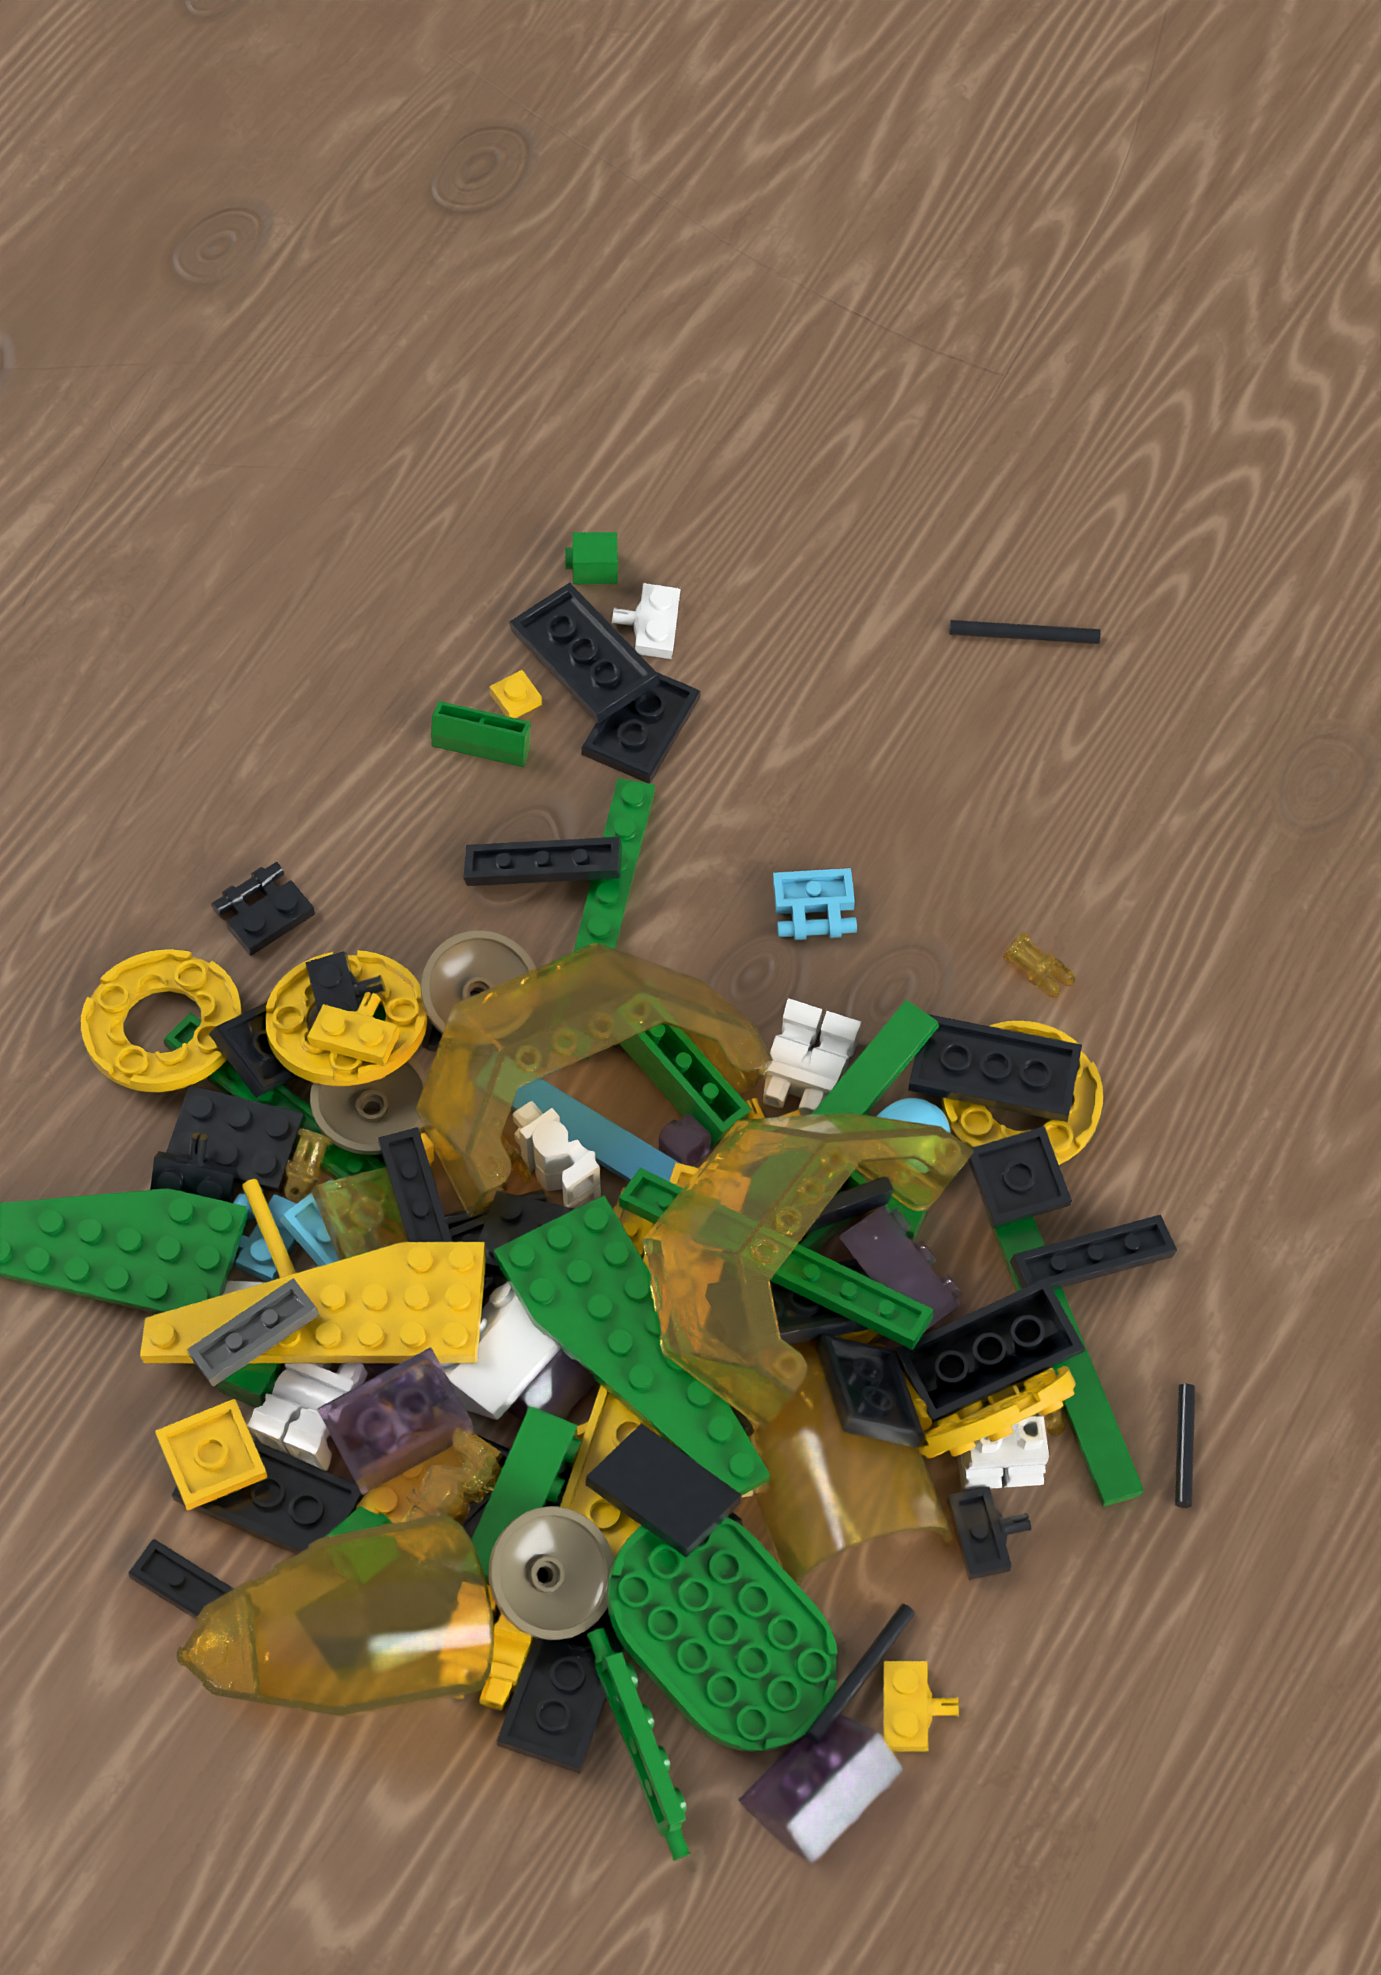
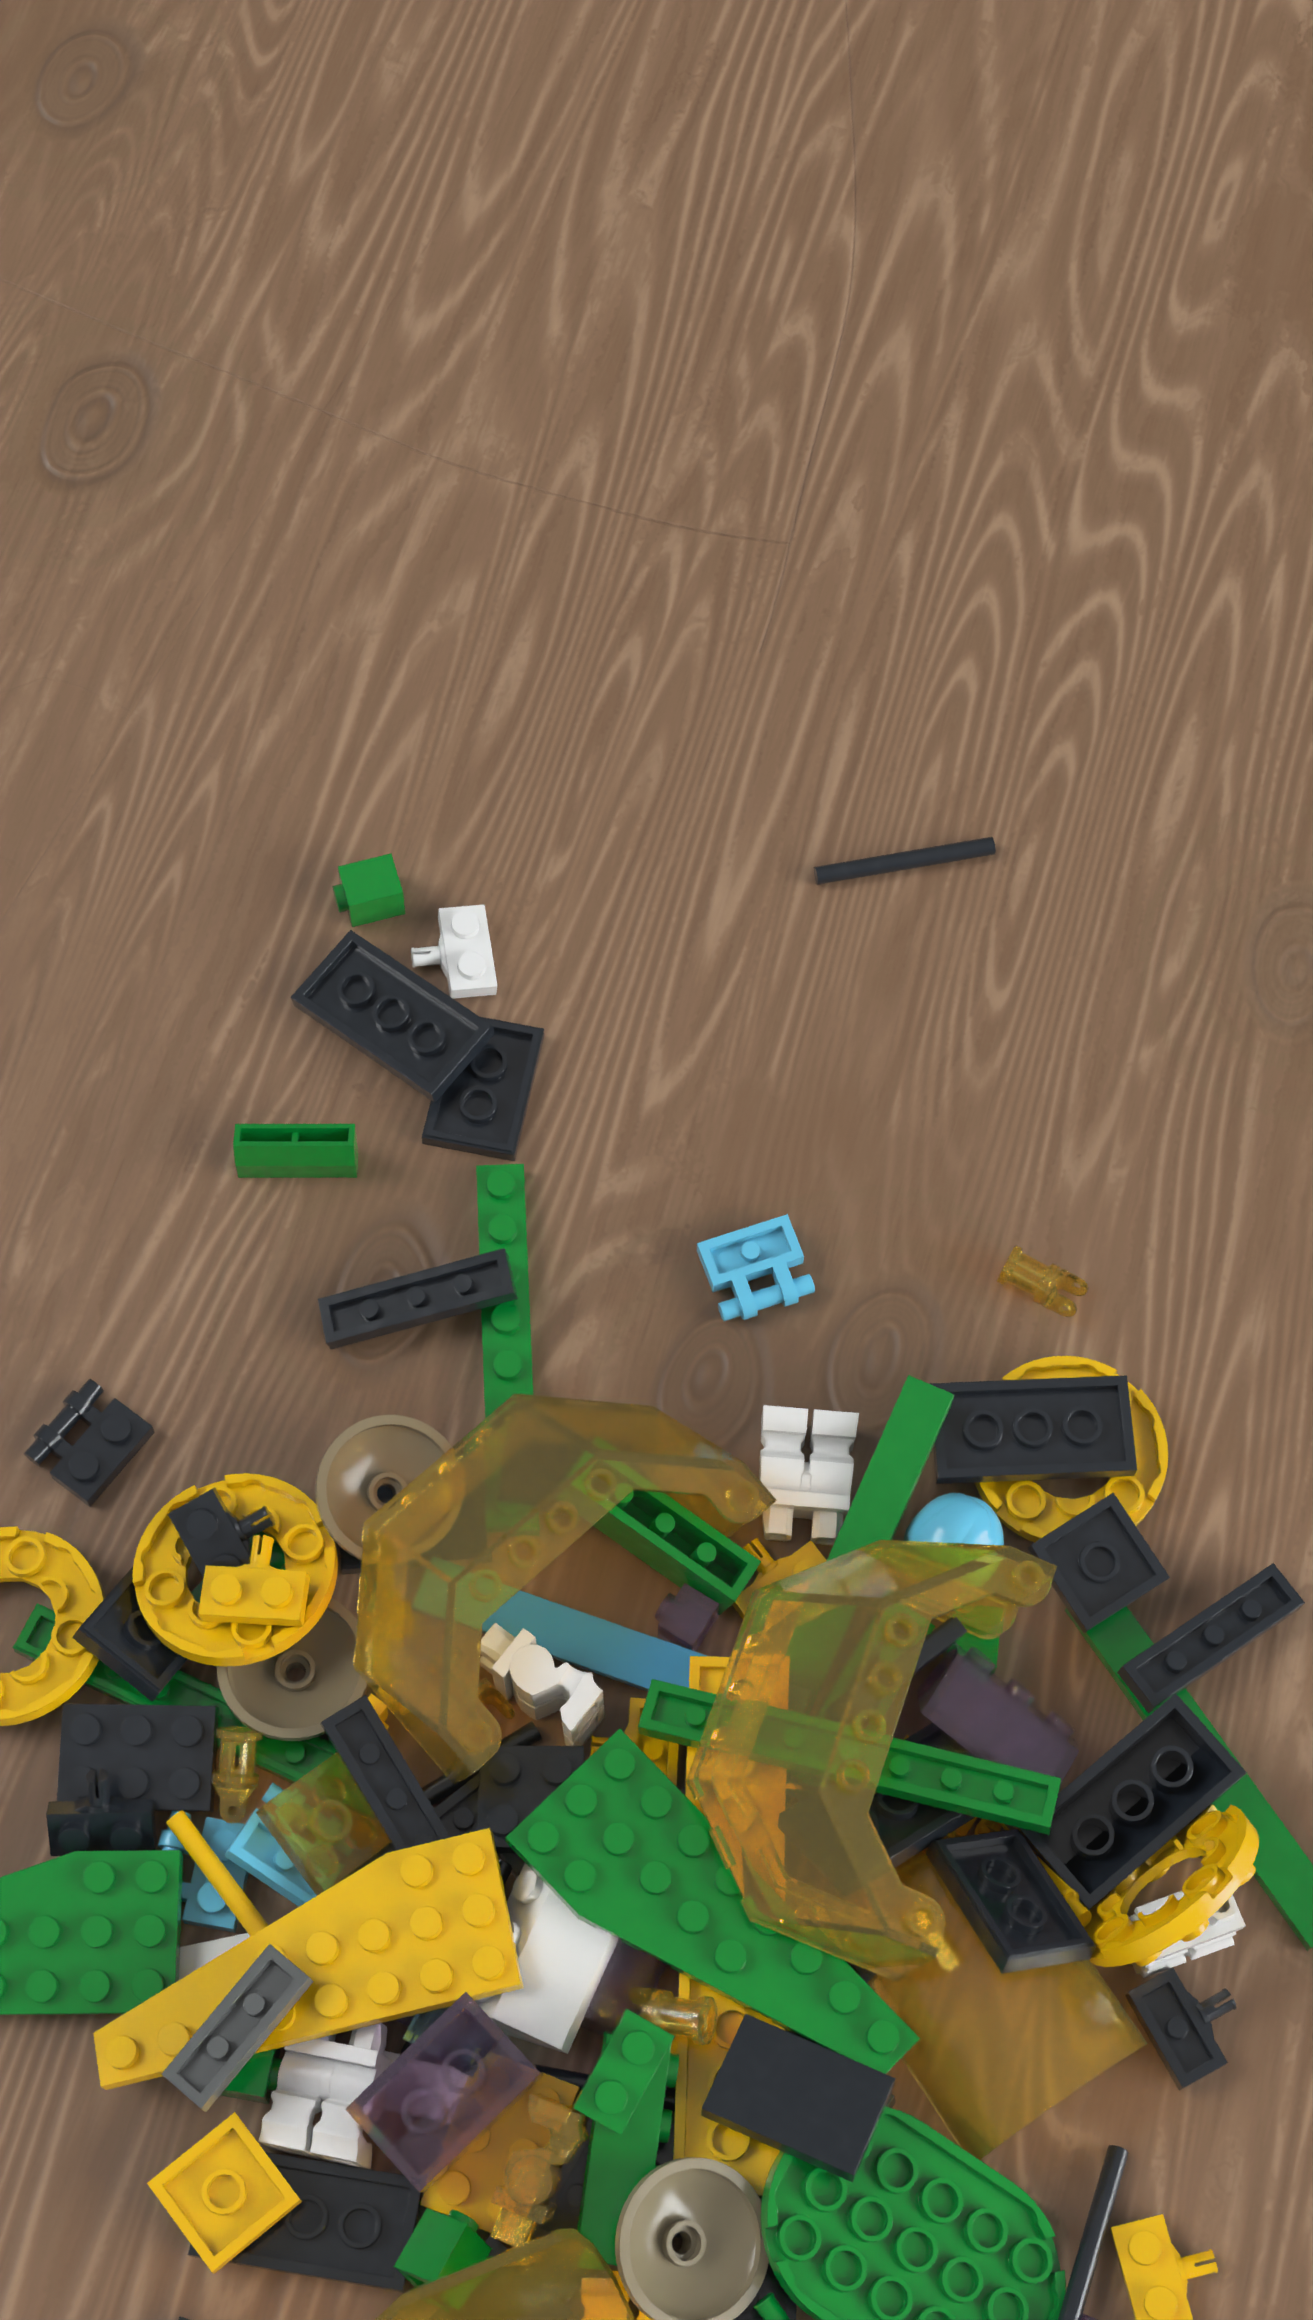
camera: 15 degrees left, 5 degrees up
(515, 695) = (323, 1088): yellow plate -> none
(534, 1434) = (623, 2072): none -> green plate
(585, 1410) = (677, 2015): none -> clear yellow piece

